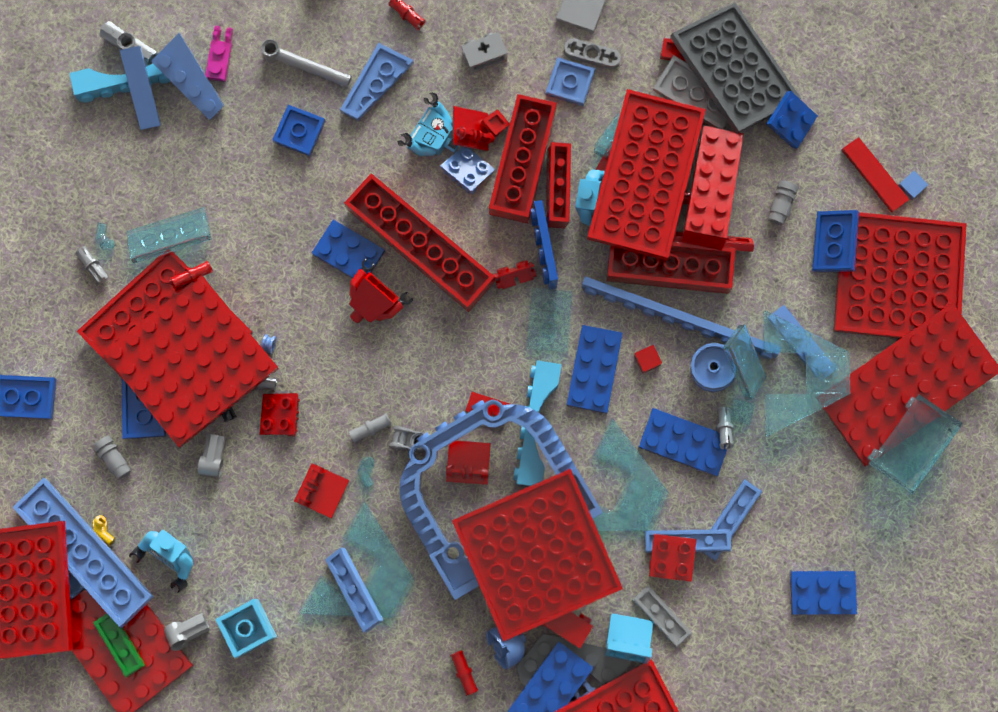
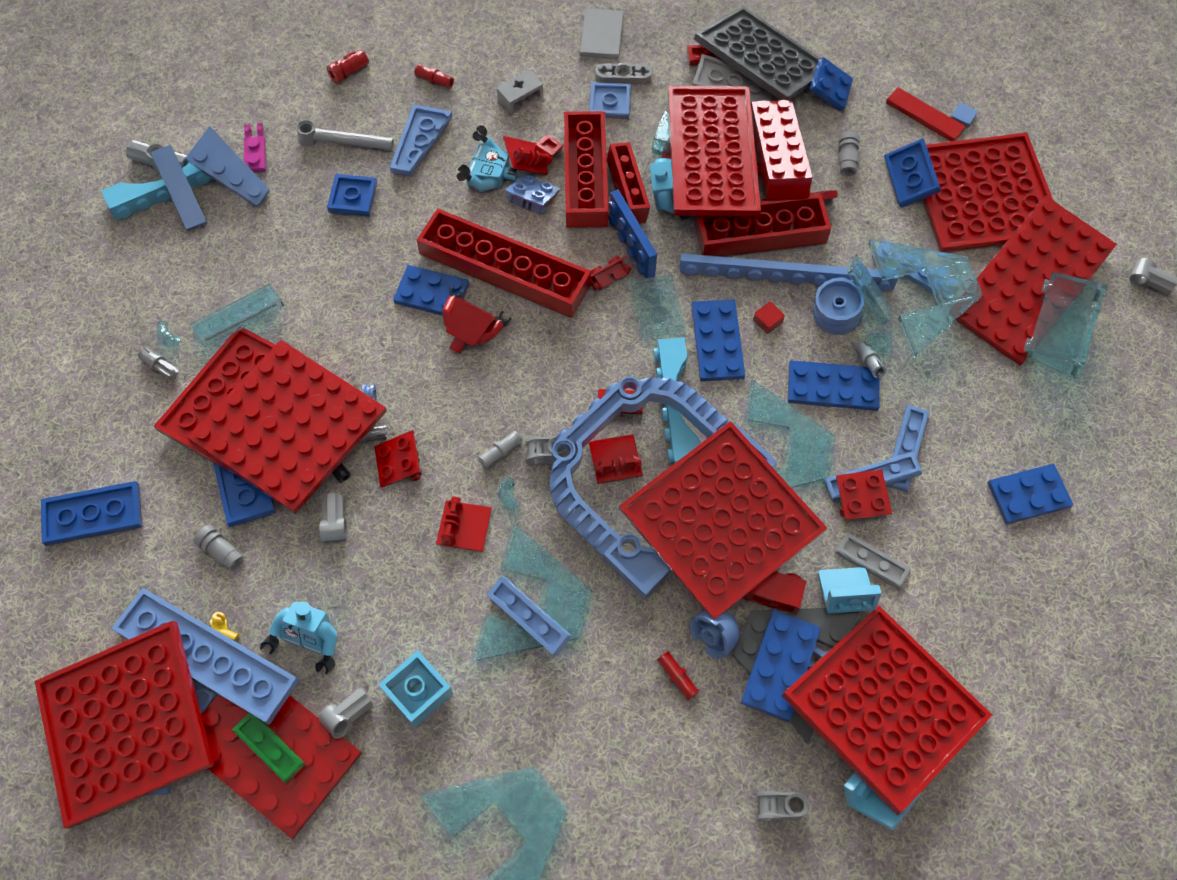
camera: 20 degrees left, 15 degrees down
(190, 275) = (268, 342): red pin -> none

